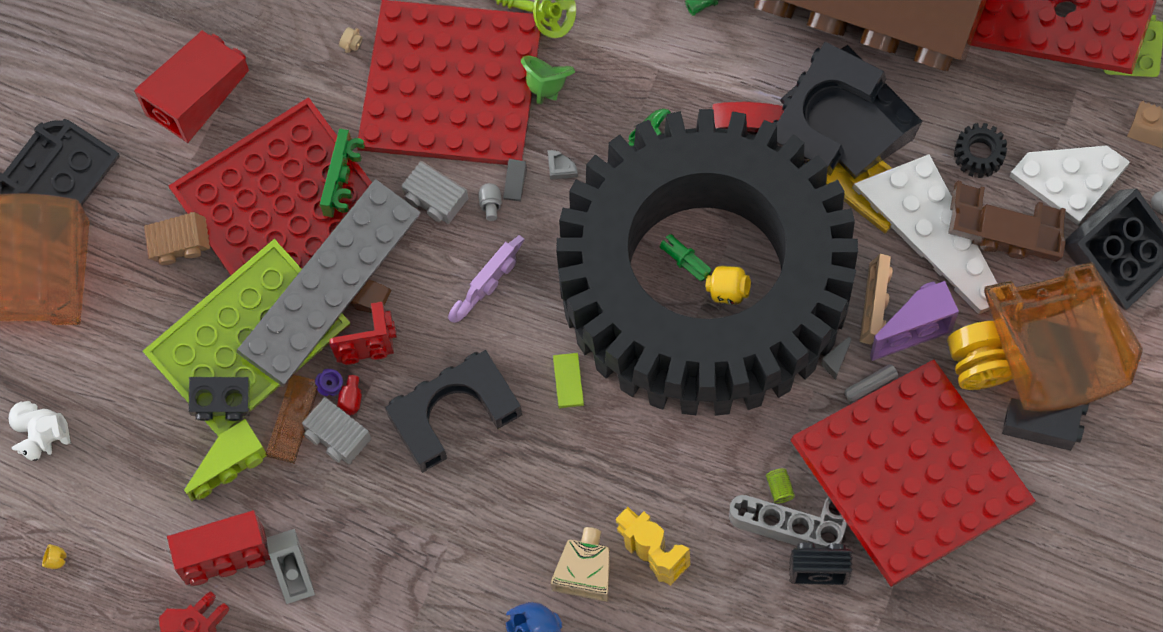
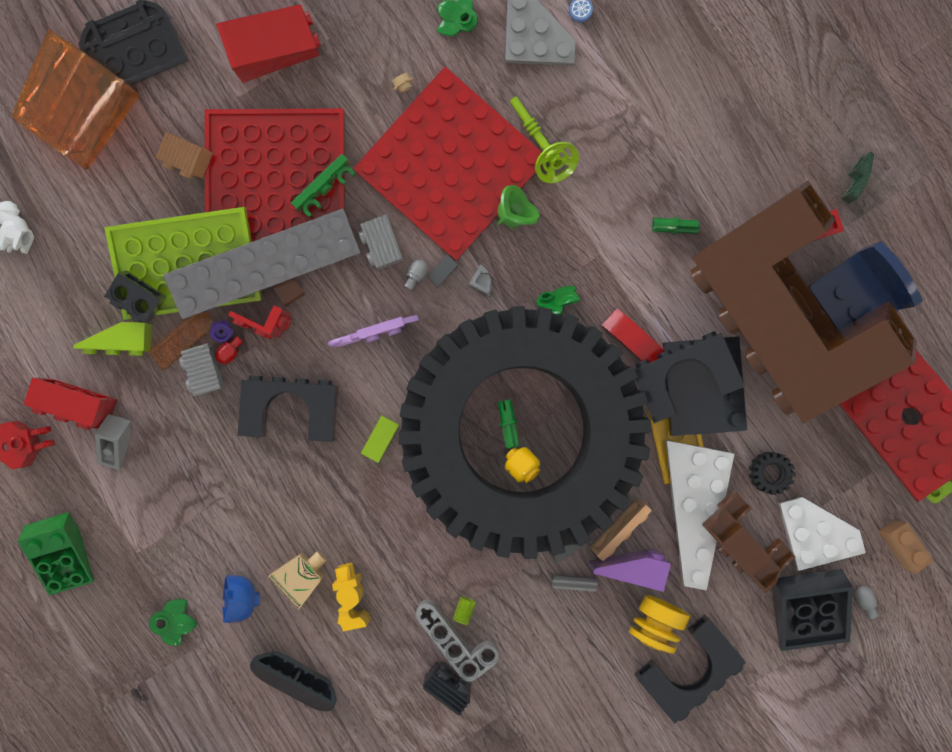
camera: 30 degrees right, 20 degrees up
(912, 472) = (554, 665): red plate -> none
(1064, 339) = (721, 656): clear orange windscreen -> none

